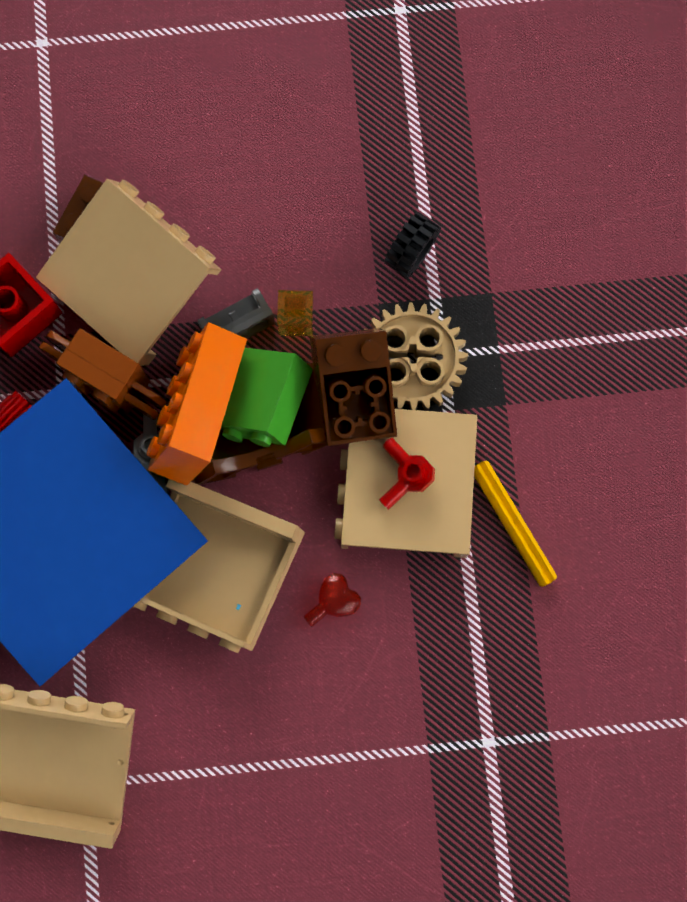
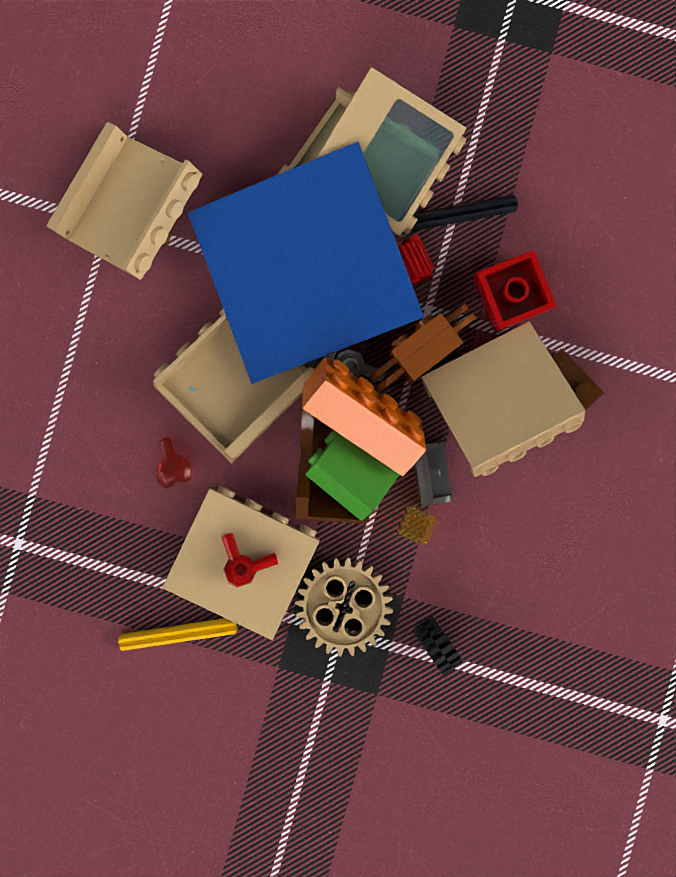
camera: 110 degrees right, 10 degrees up
(354, 385) = (333, 549): reddish brown slope -> none

